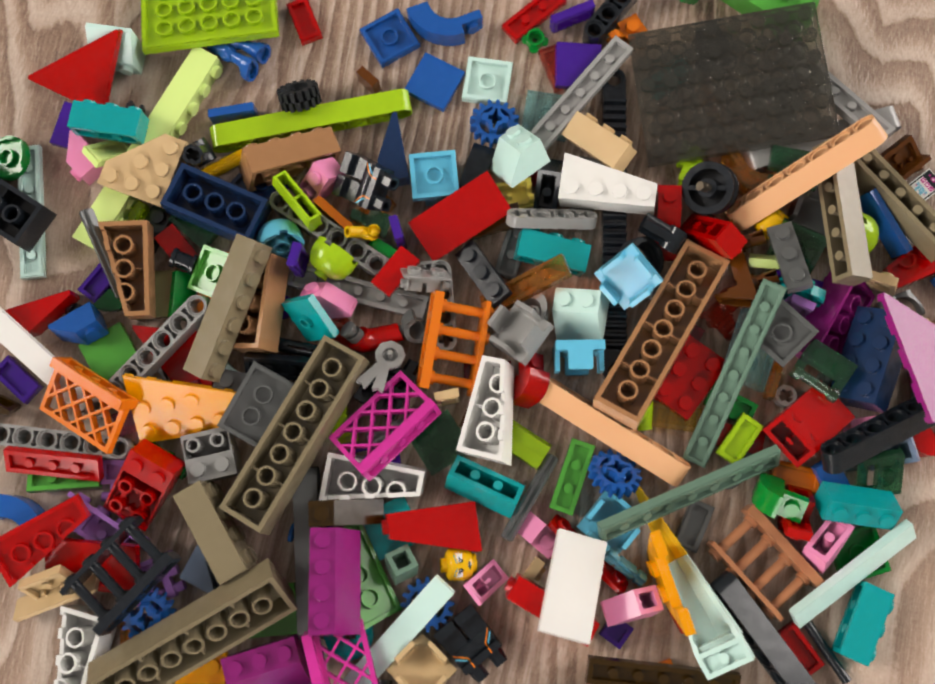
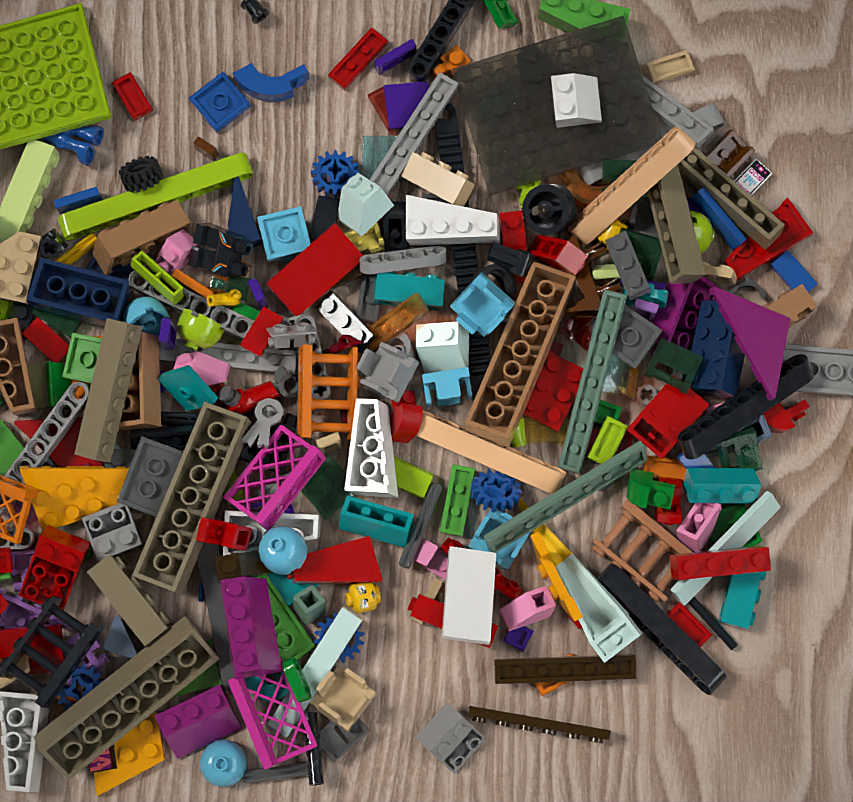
camera: 15 degrees left, 0 degrees up
(183, 261) = (55, 351): black bush -> none
(322, 477) = (224, 533): none -> red brick
(375, 646) = (296, 680): none -> green beam
(381, 504) = (282, 550): none -> medium azure cylinder
(434, 82) = (270, 140): blue tile -> none
(471, 651) = (390, 671): black hips -> none
(476, 296) = (342, 344): none -> dark red hand
(485, 582) = (390, 609): bright pink slope -> none
(486, 80) = (322, 132): light aqua tile -> none
(537, 34) = (365, 79): green plate -> none
(625, 567) = (518, 575): medium azure axle -> none
(694, 525) = (577, 527): dark grey tile -> none
(754, 78) = (575, 100): none -> white slope
(850, 592) = (720, 562): none -> red brick
(851, 64) = (670, 67): none -> tan tile

